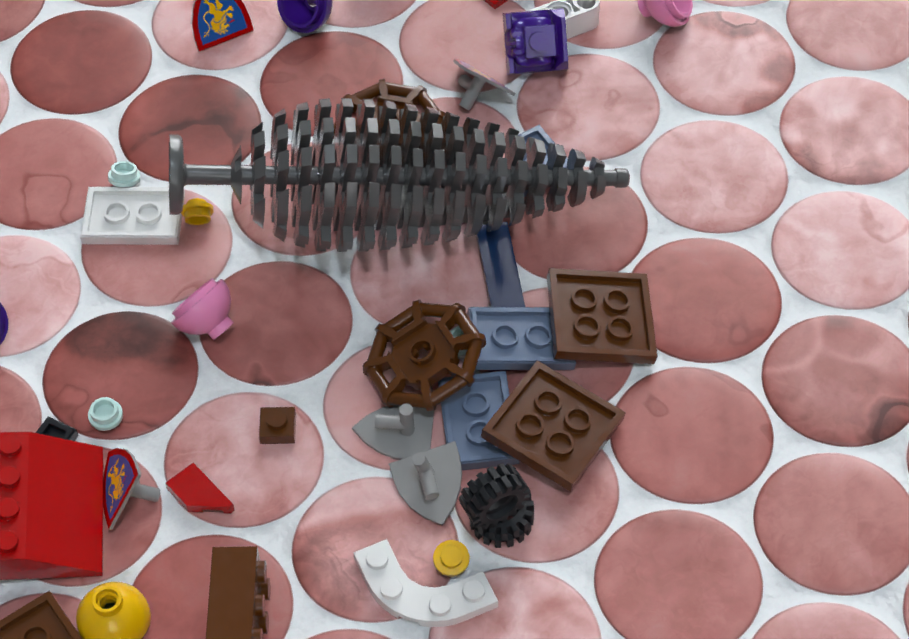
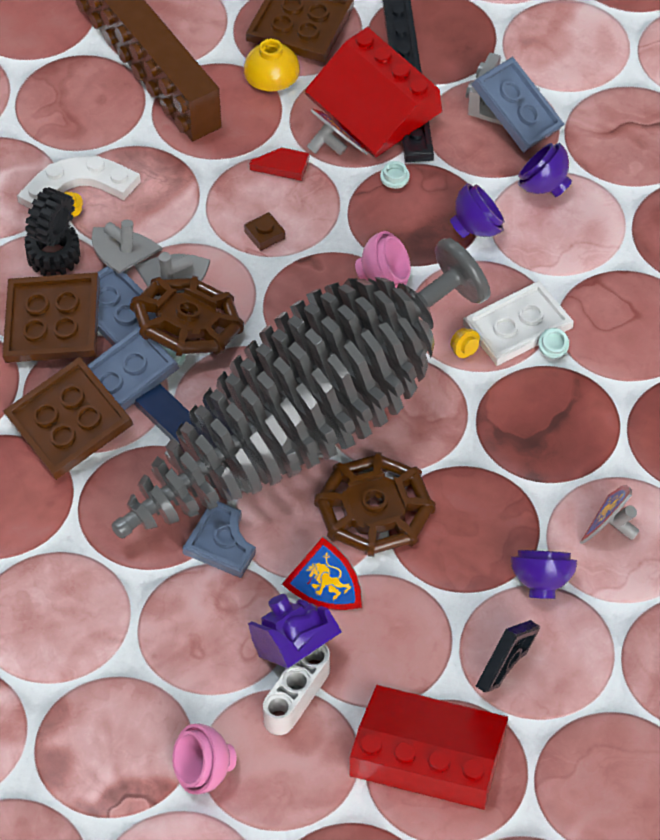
camera: 145 degrees right, 0 degrees up
(76, 313) = (476, 213): none -> dark purple piece

